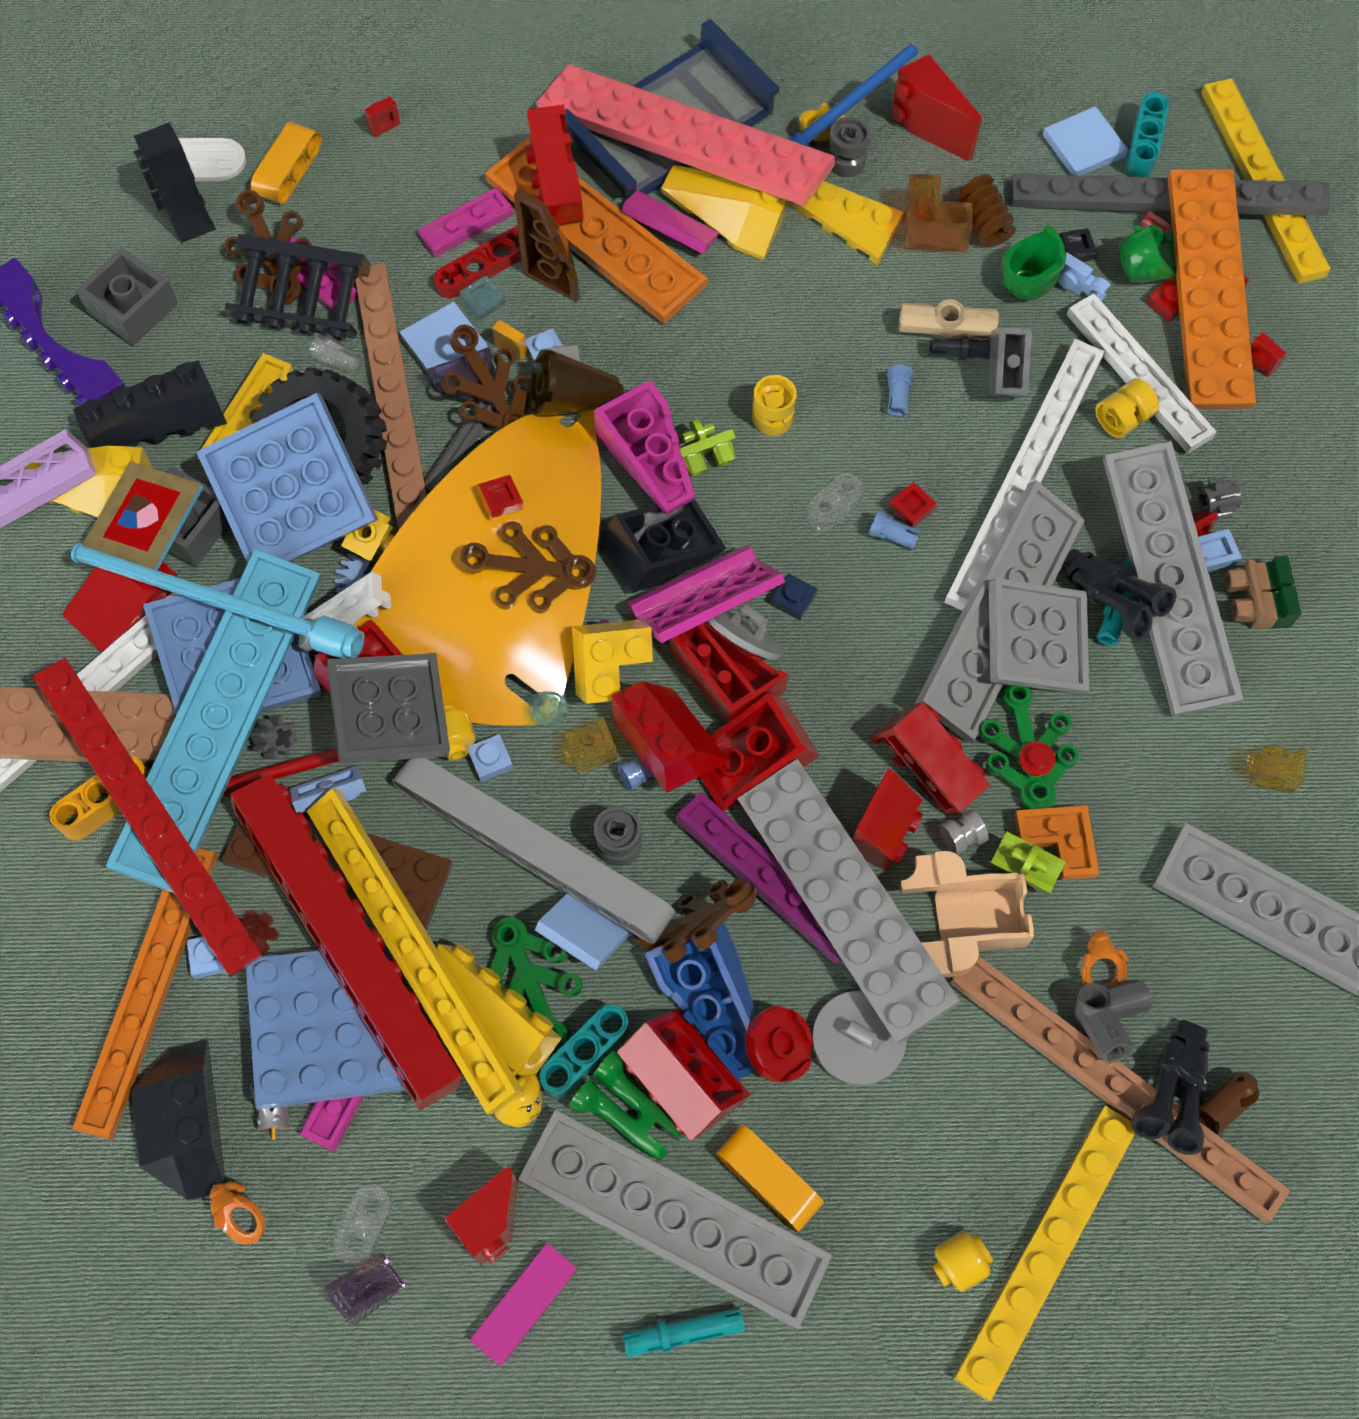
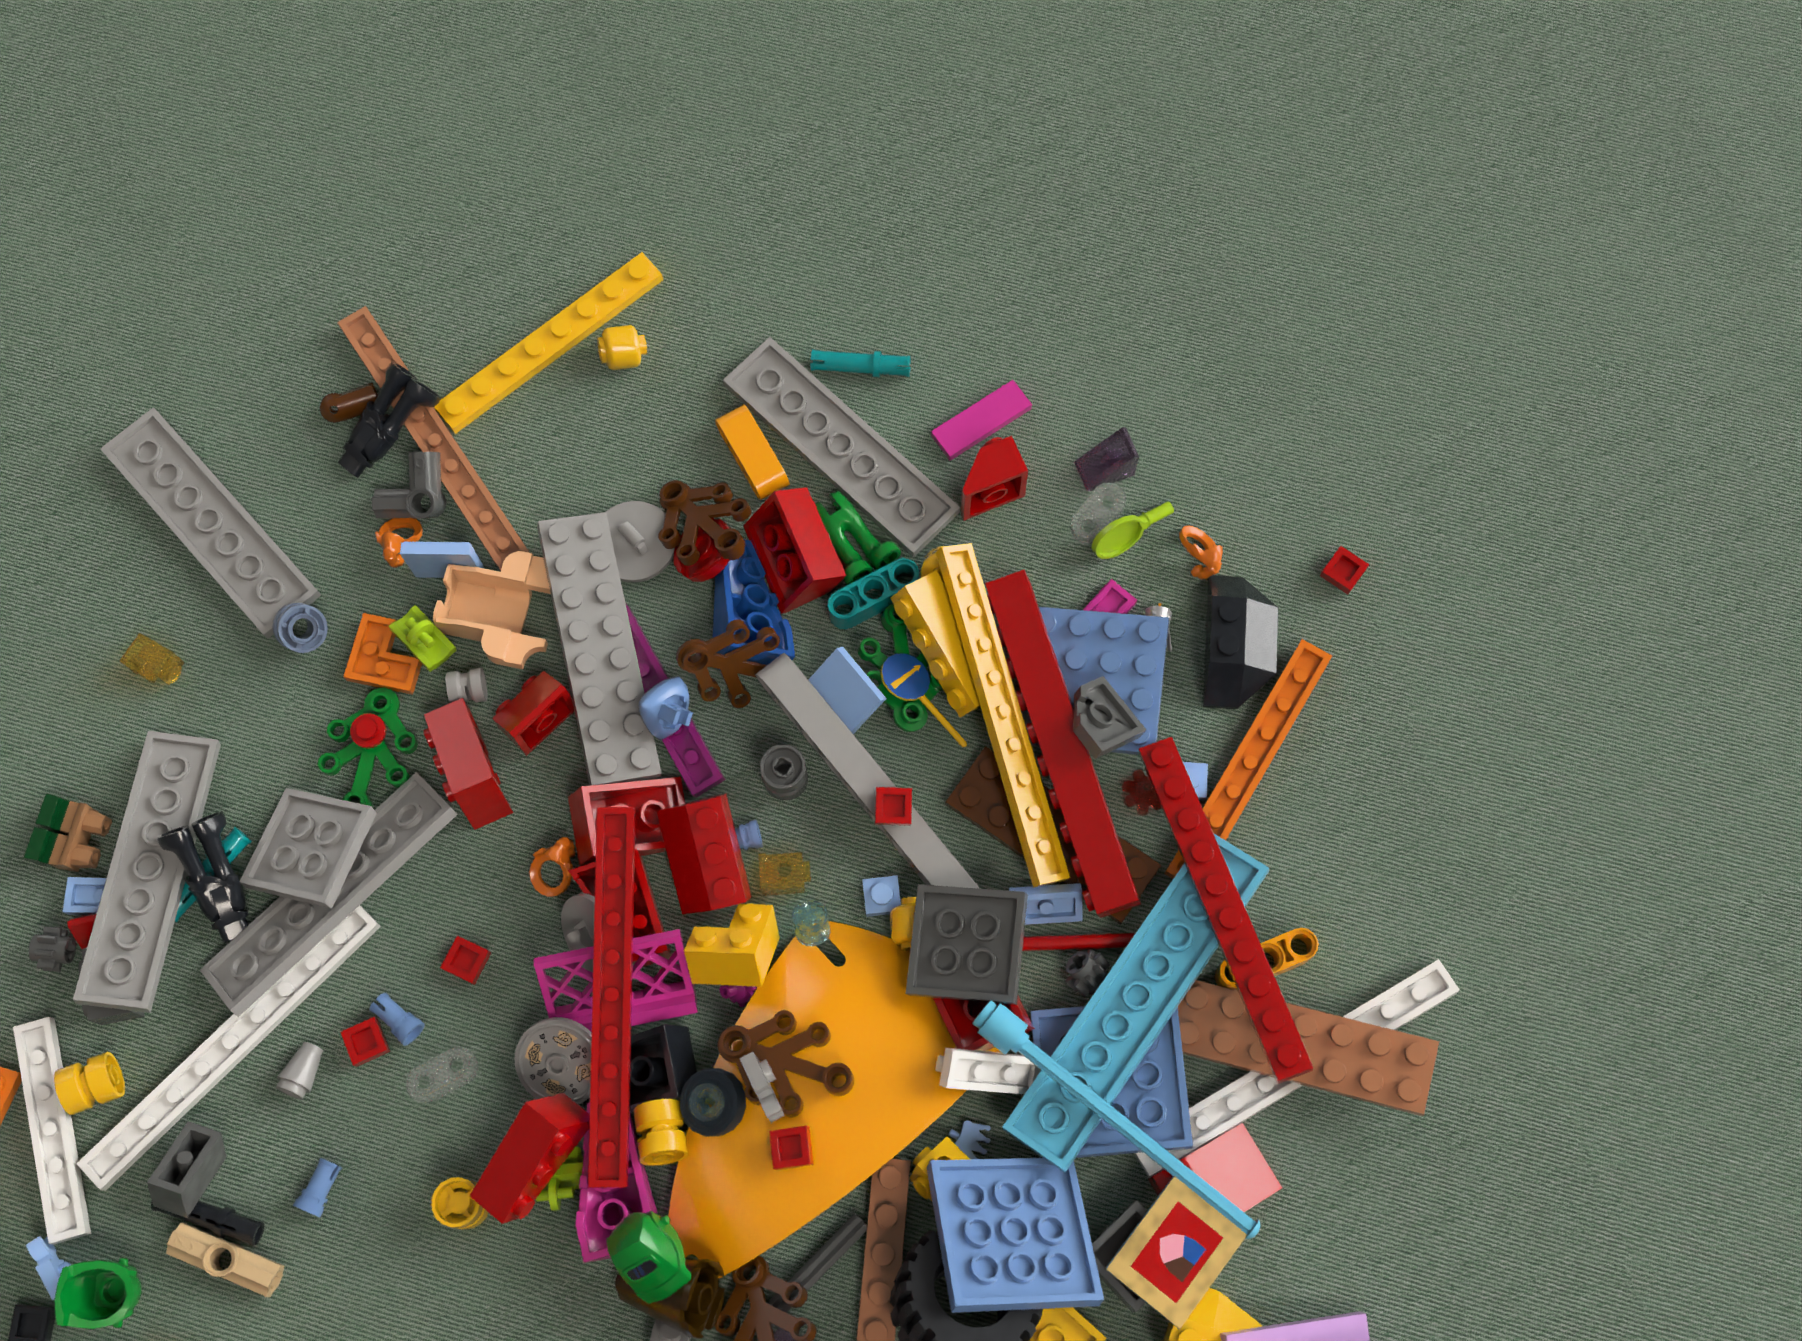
camera: 160 degrees left, 5 degrees up
(71, 1239) = (1344, 570): none -> red plate
(301, 963) = (1103, 718): none -> dark grey plate
(325, 1212) = (1126, 531): none -> lime piece
(494, 816) = (893, 806): none -> red plate
(522, 965) = (909, 681): none -> blue piece
(541, 532) = (760, 1076): none -> light grey plate
(582, 518) = (726, 1098): none -> black wheel
(596, 386) = (648, 1255): none -> green helmet
(621, 488) = (661, 1139): none -> yellow wheel
(703, 572) = (612, 998): none -> red plate
(721, 437) = (530, 1156): none -> red wedge
(734, 529) = (555, 1059): none -> light grey shield
(754, 851) = (665, 707): none -> medium blue piece
(794, 596) = (523, 979): dark blue plate -> none
(796, 1071) = (678, 498): none -> reddish brown plant
(808, 695) = (559, 853): none -> orange piece
(854, 592) = (465, 960): none -> red plate
(956, 467) = (299, 1073): none -> light grey cone
(1043, 943) = (432, 558): none -> light blue tile
(1162, 847) = (315, 632): none -> sand blue wheel

